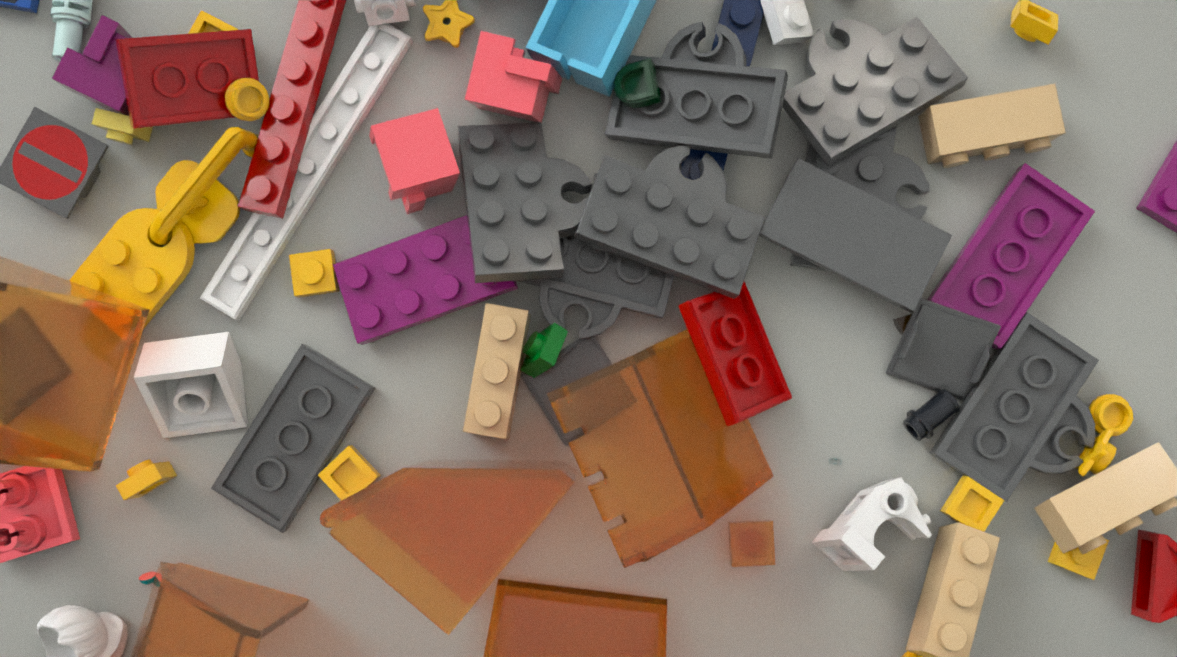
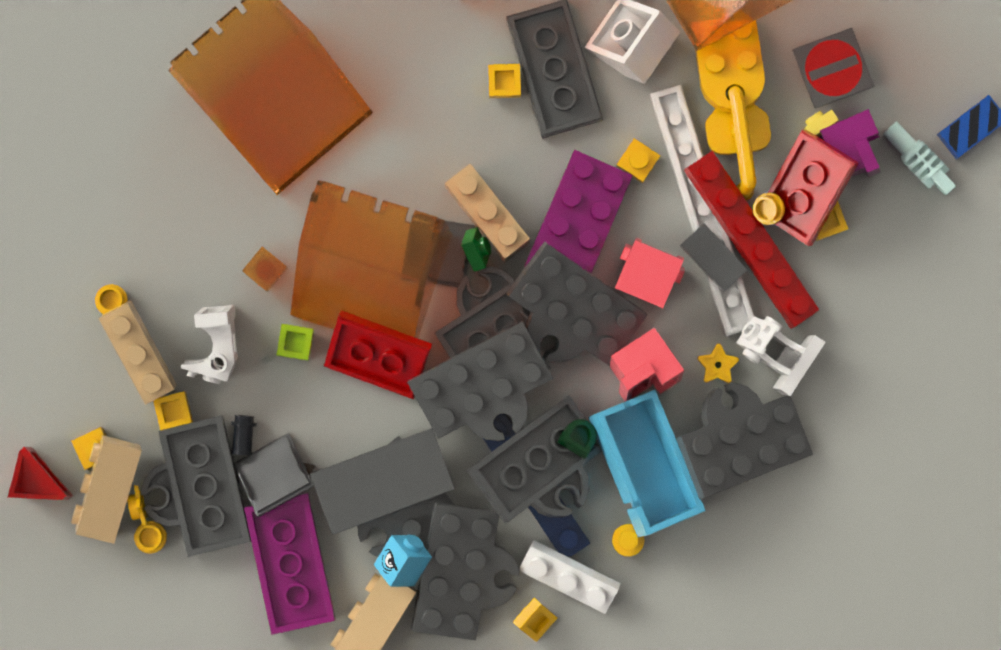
camera: 130 degrees right, 0 degrees up
(344, 112) = (713, 257): none -> dark grey tile
(447, 527) = (424, 112): clear orange windscreen -> none
(795, 446) = (295, 342): none -> lime plate
(914, 144) = (402, 560): none -> medium azure brick

